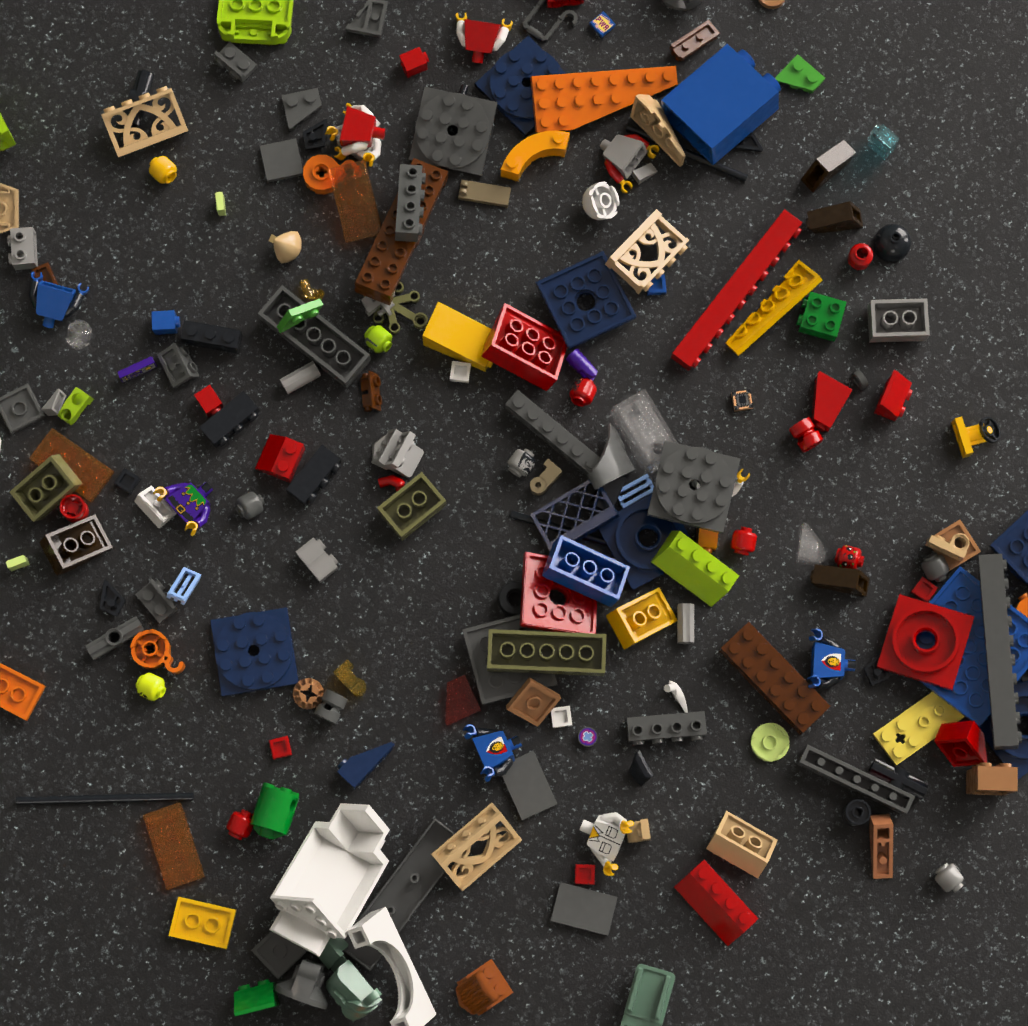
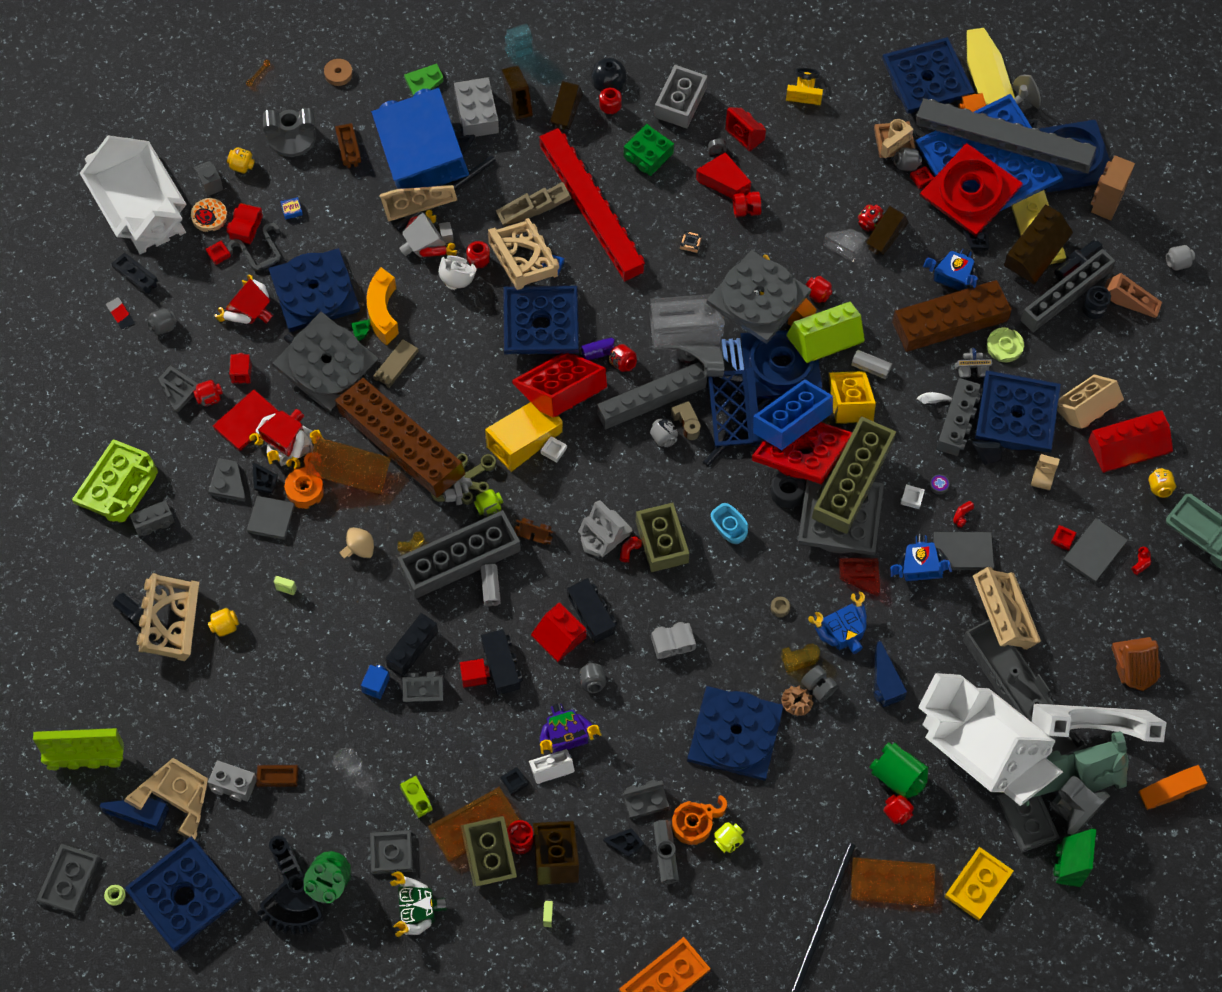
camera: 65 degrees left, 15 degrees down
(54, 300) = (300, 772): blue torso -> none
(54, 404) = (404, 816): light grey piece -> none
(137, 369) = (408, 724): dark purple tile -> none
(177, 596) = (651, 773): light blue tile -> none
(280, 747) = (837, 747): red tile -> none
(299, 314) = (438, 549): bright green wing -> none
(367, 90) = (244, 419): none -> red tile
(375, 46) = (208, 393): none -> red head
(395, 641) = (780, 606): none -> dark tan tile
(397, 705) = (843, 626): none -> blue torso
(409, 203) = (380, 412): dark grey brick -> none
(453, 560) = (729, 523): none -> medium azure piece
(503, 146) = (361, 329): none -> green tile
(533, 702) = (891, 509): medium nougat plate -> none
(567, 768) = (961, 511): none -> red arm
(577, 99) = (354, 245): orange wing -> none
(593, 959) = (1144, 560): none -> red arm
(606, 838) = (1039, 500): white torso -> none
(629, 212) = (478, 254): none -> red head
(683, 947) = (1162, 482): none -> yellow head
(702, 758) = (1031, 398): none -> dark blue piece
(711, 238) = (533, 205): none -> dark tan slope
(725, 712) = (964, 365): none -> light grey hips
(791, 136) = (476, 107): none -> light grey brick
(796, 286) = (616, 169): yellow wing -> none
(892, 732) = (1039, 244): none -> dark brown slope
(962, 743) = (1071, 197): red slope -> none

